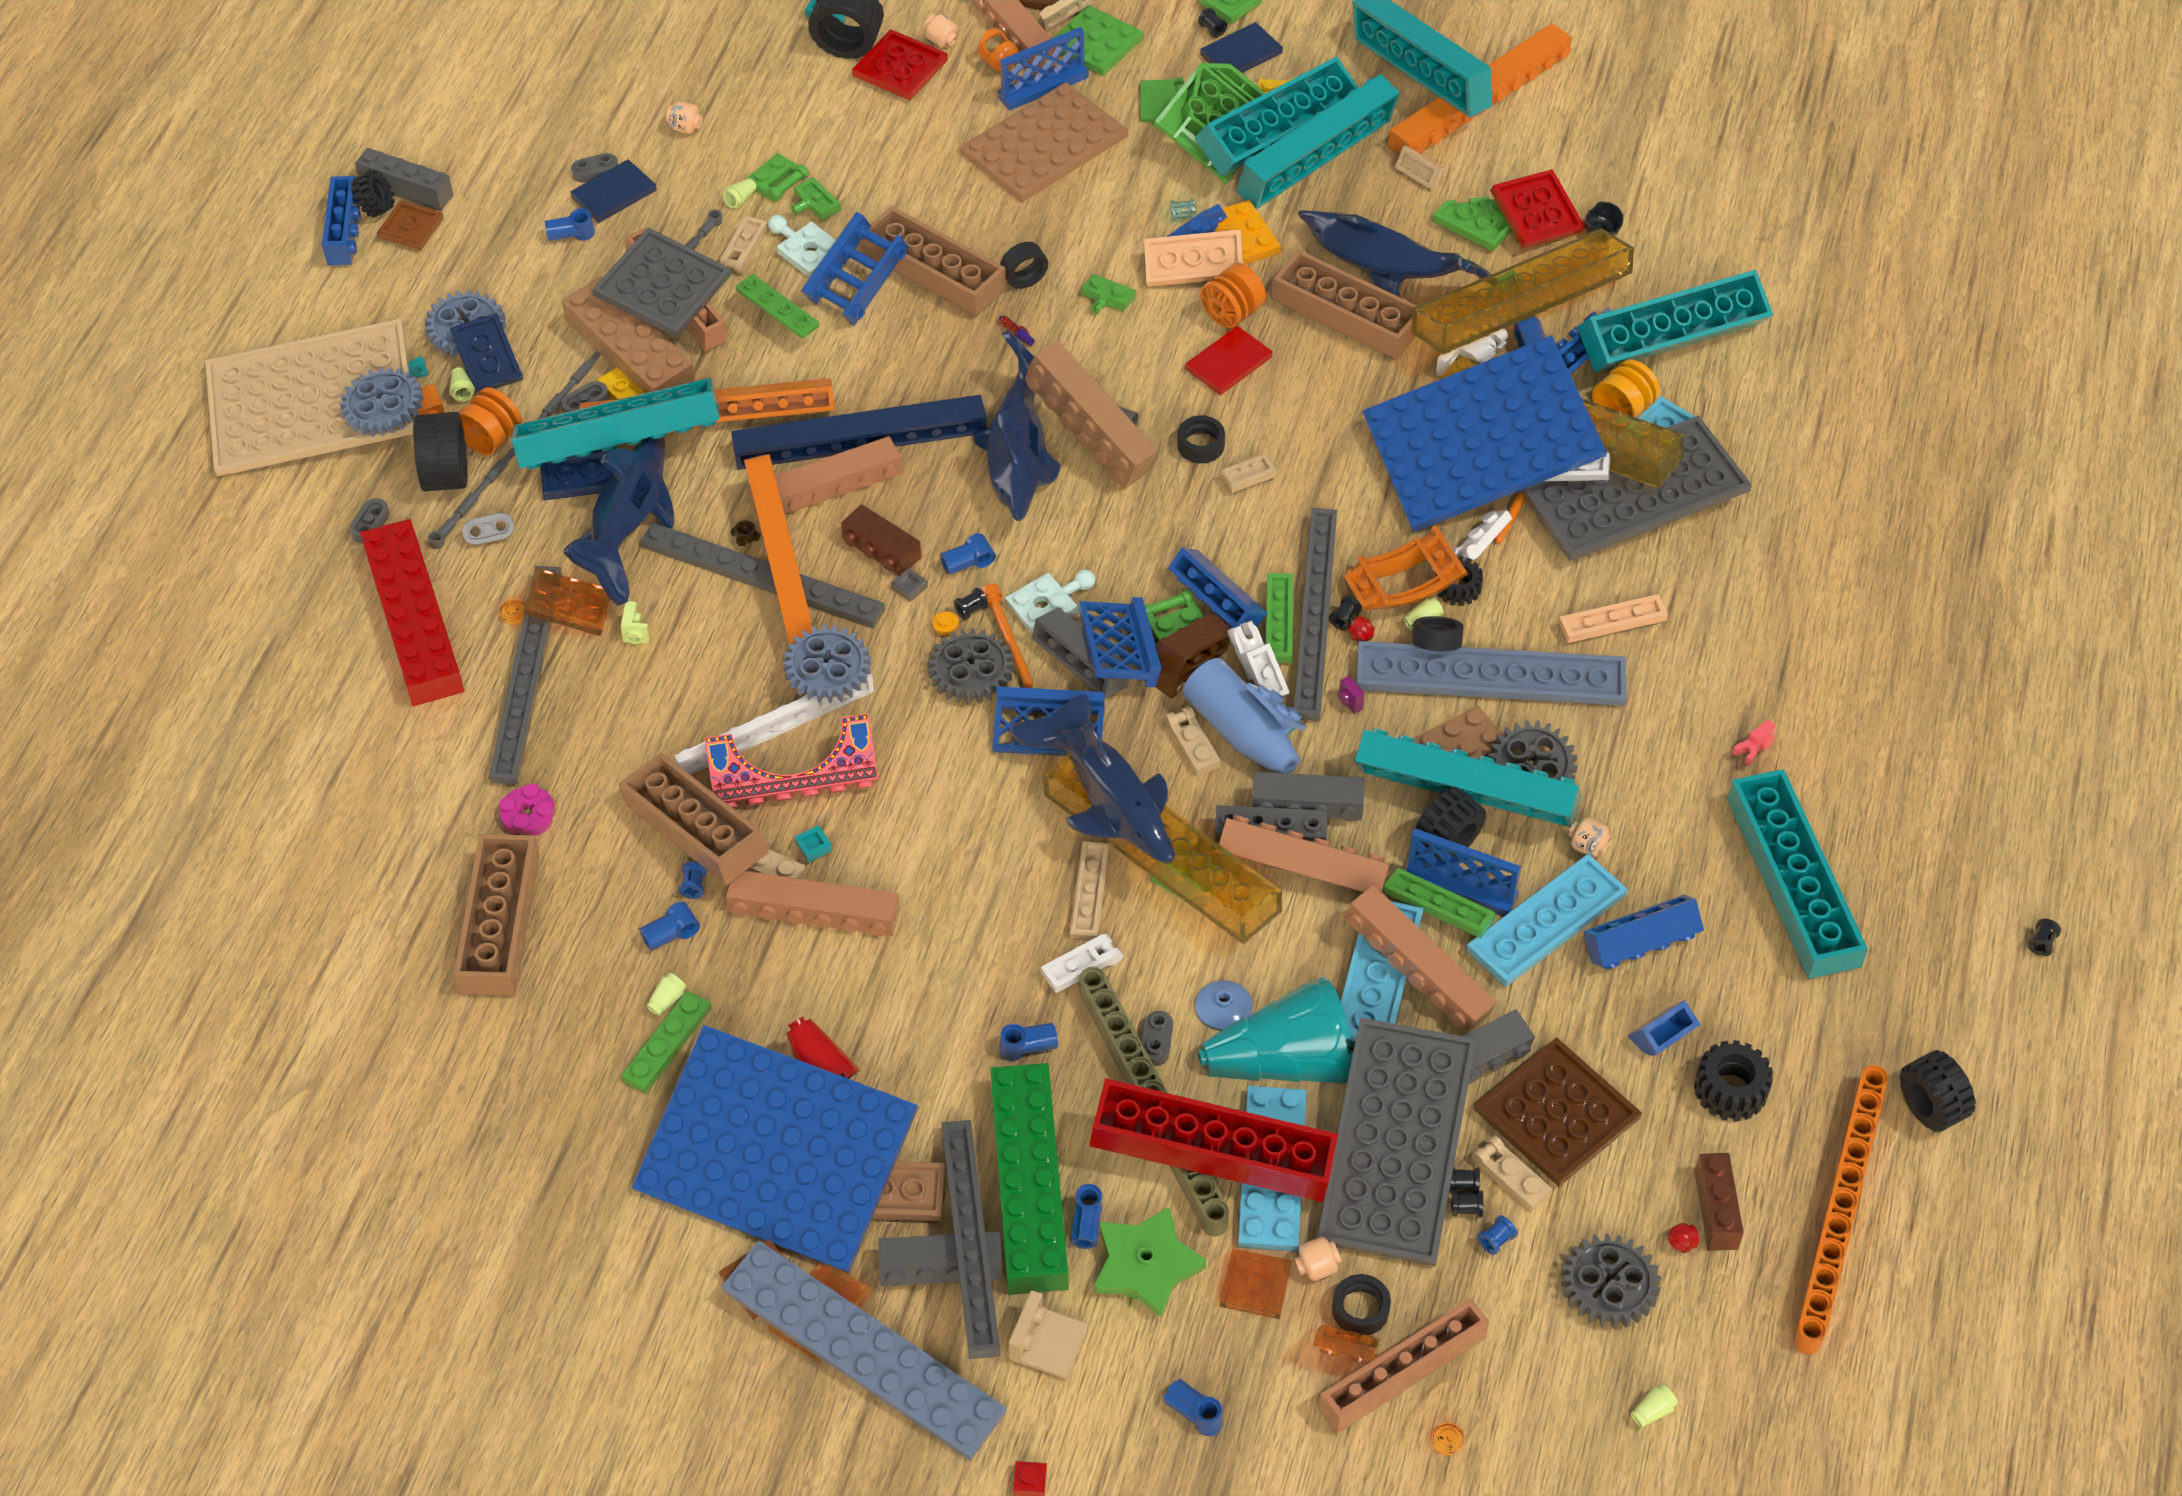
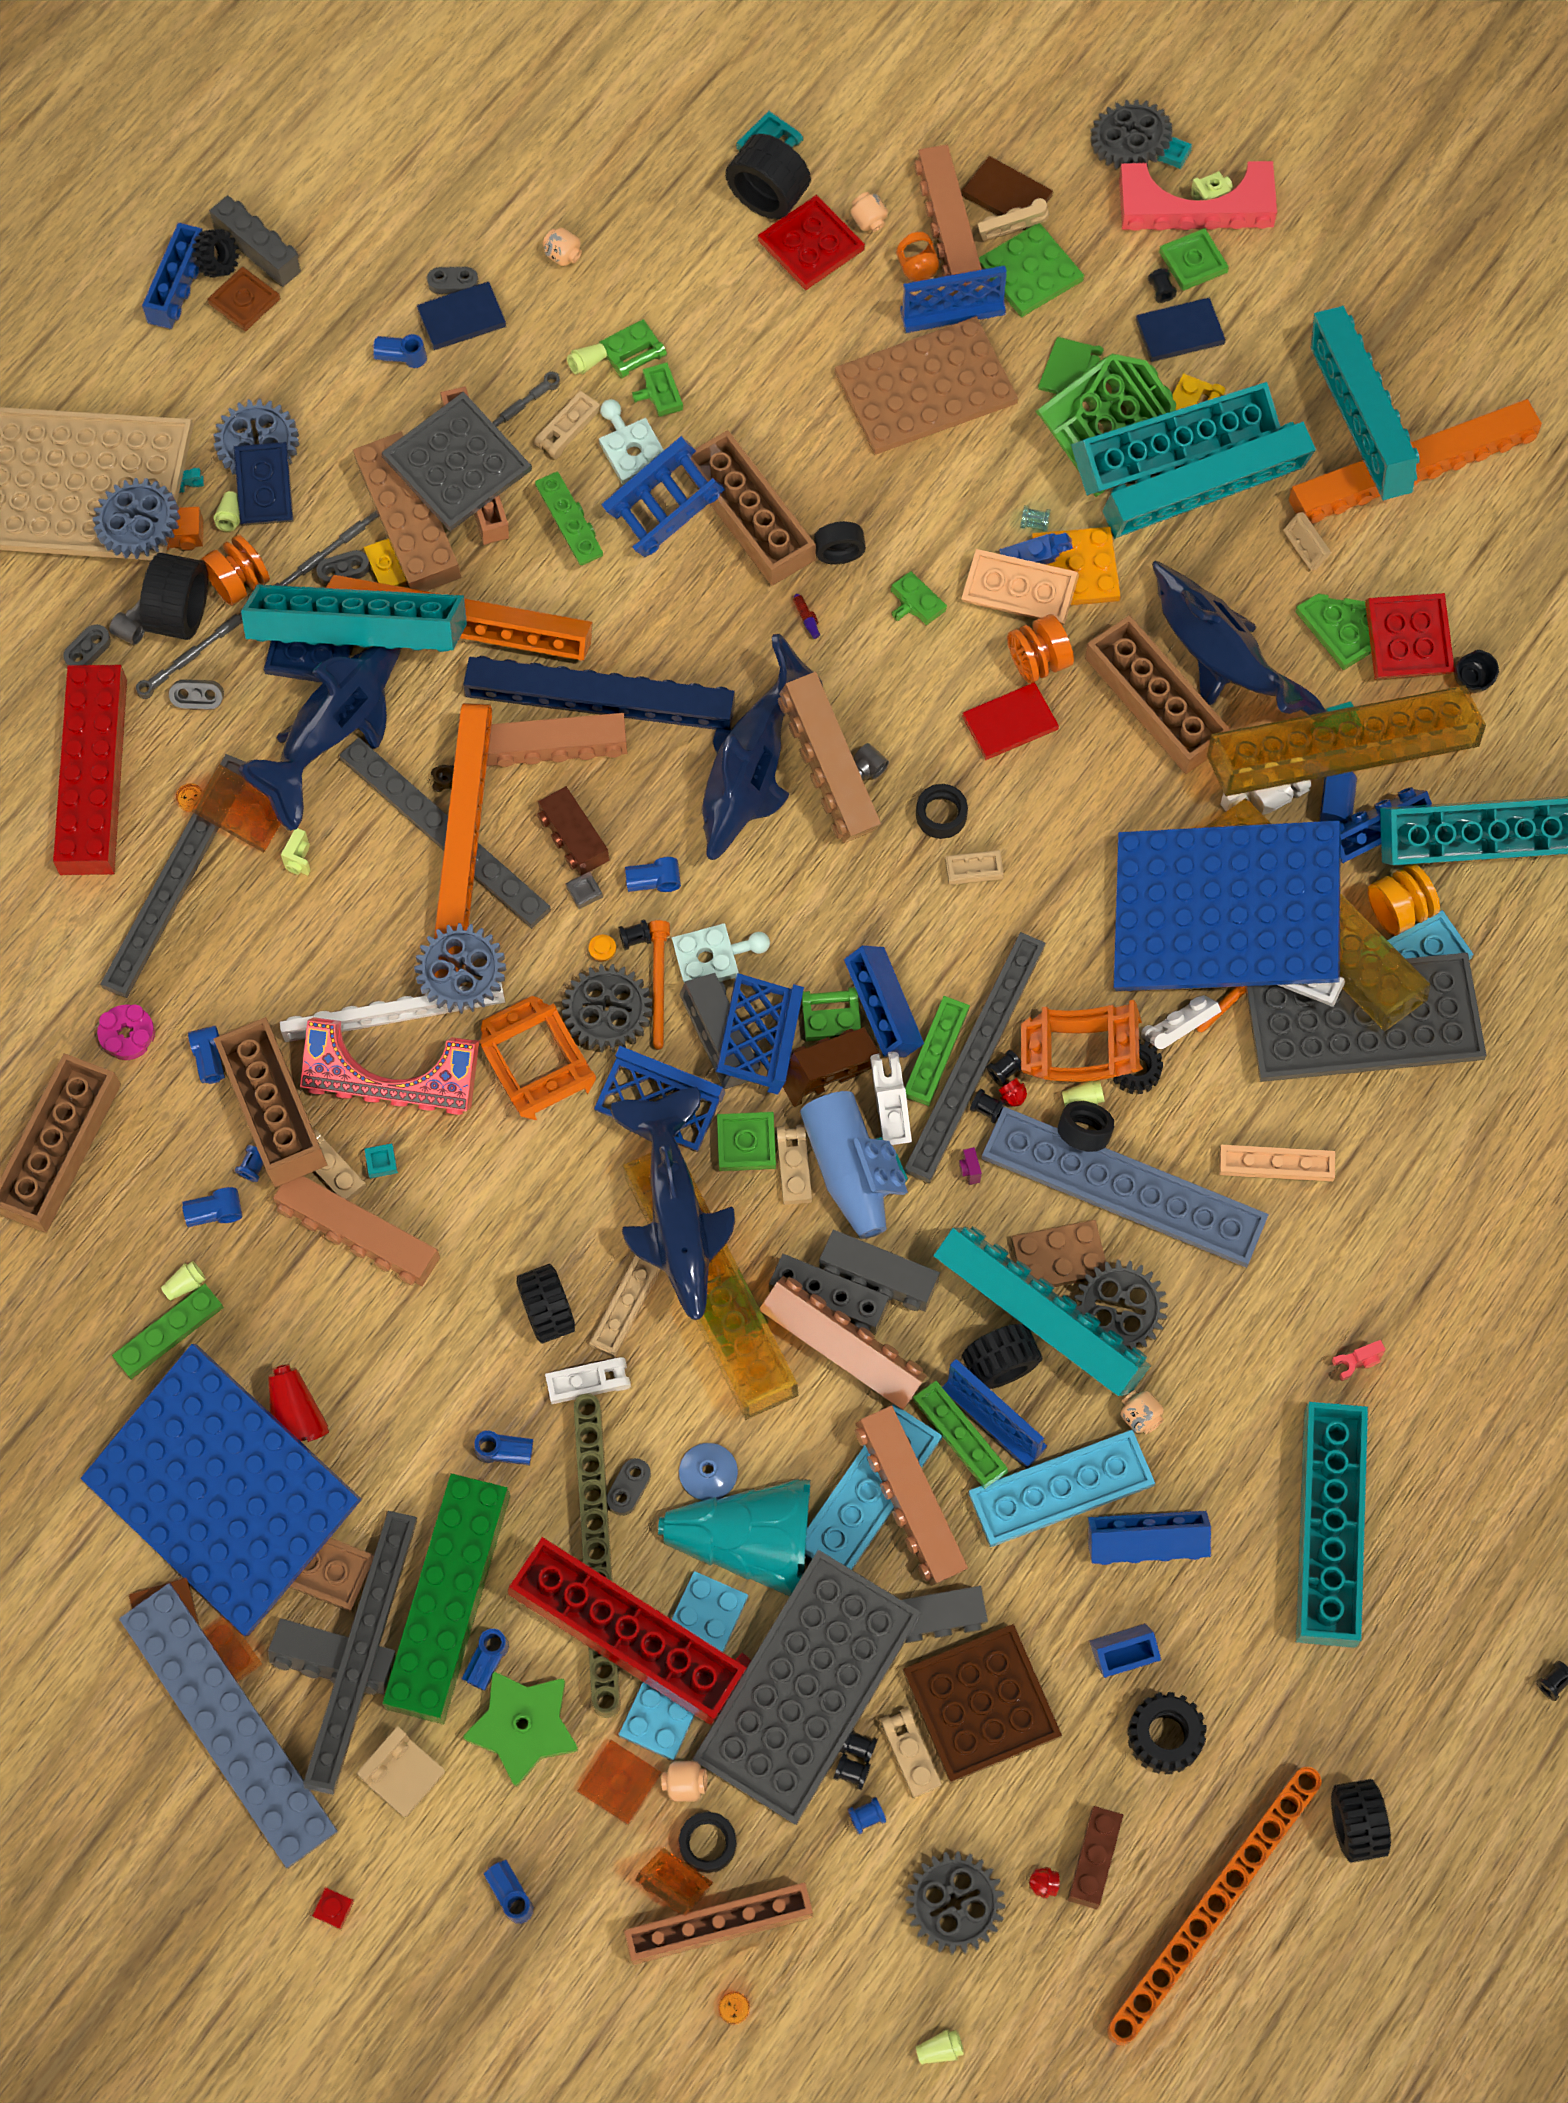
camera: 20 degrees right, 15 degrees up
(405, 491) = (128, 625): none -> flat silver pin
(610, 800) = (207, 1055): none -> blue piece
(961, 726) = (551, 1087): none -> orange wedge
(1019, 904) = (545, 1303): none -> black tyre
(1142, 733) = (746, 1141): none -> bright green plate
(1344, 645) = (987, 1105): none -> black bush

